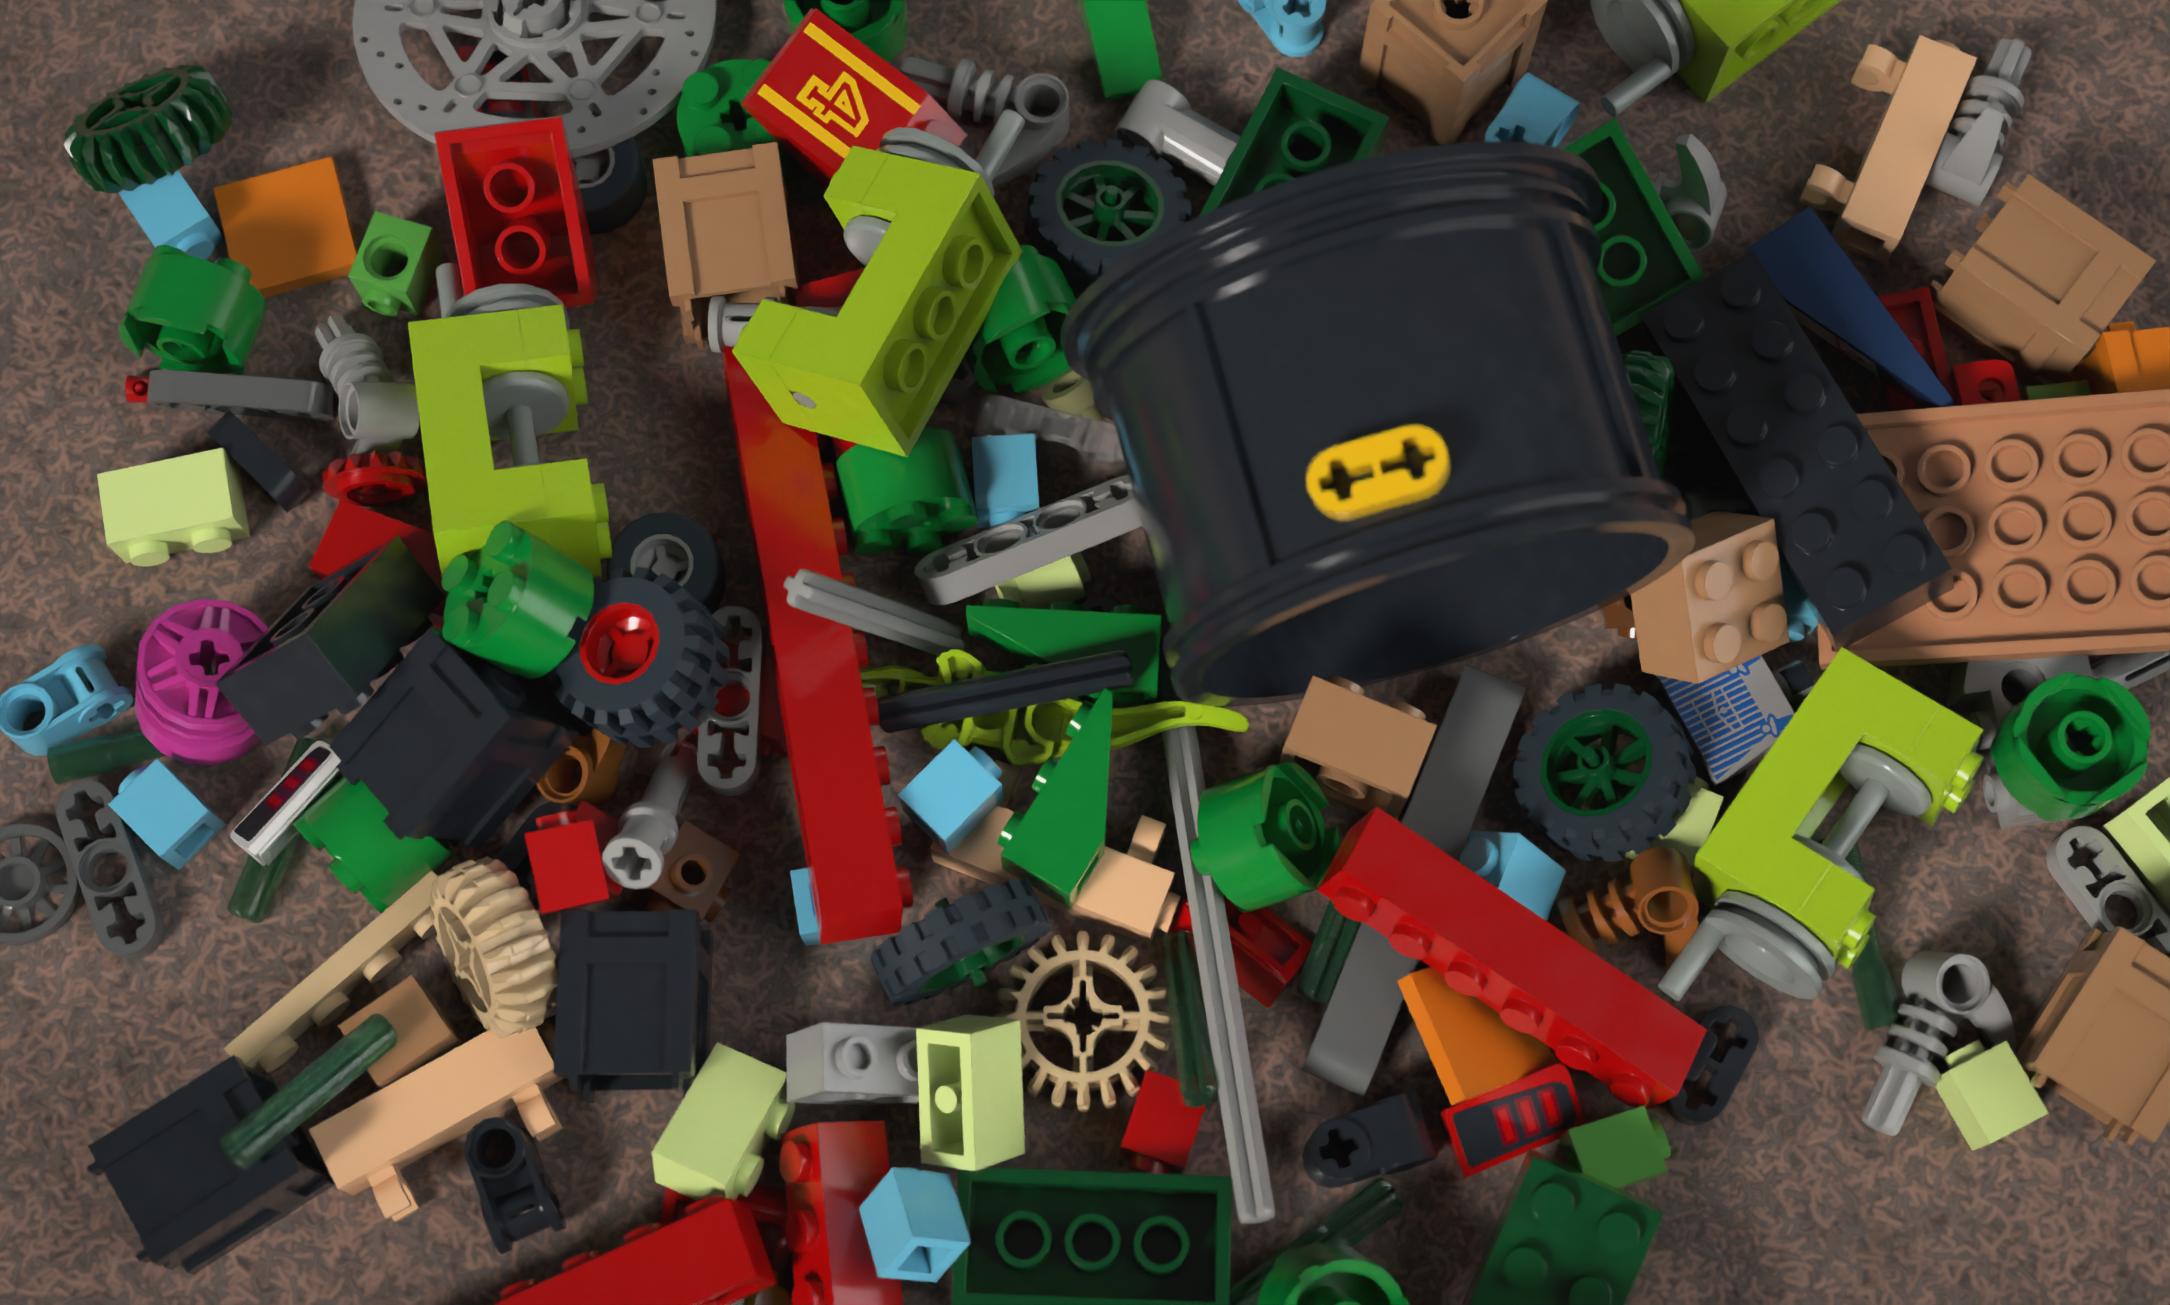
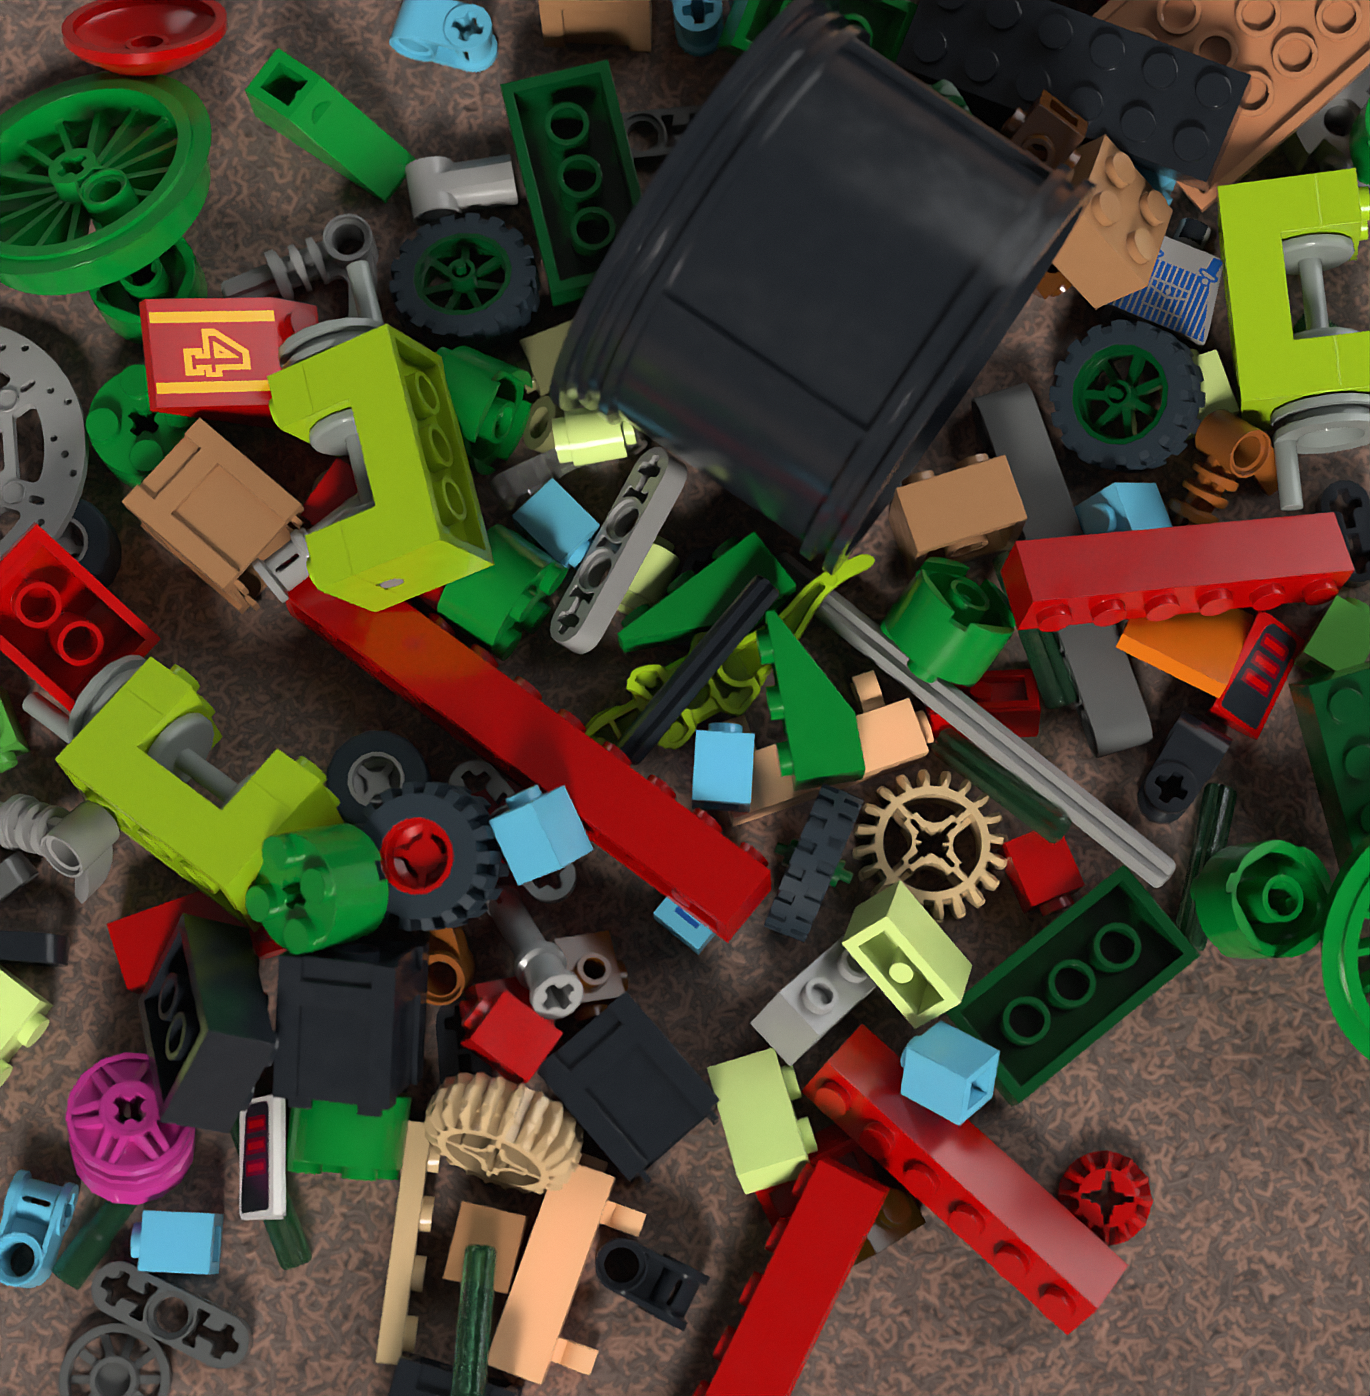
camera: 40 degrees left, 5 degrees up
(374, 478) = (114, 890): red gear -> none
(741, 712) = (540, 833): none -> medium azure brick
(872, 613) = (562, 691): light grey axle -> none
(1084, 424) = (590, 439): none -> yellowish green brick
(1373, 455) = (883, 300): yellow beam -> none
(1713, 475) = (1047, 124): none -> reddish brown brick

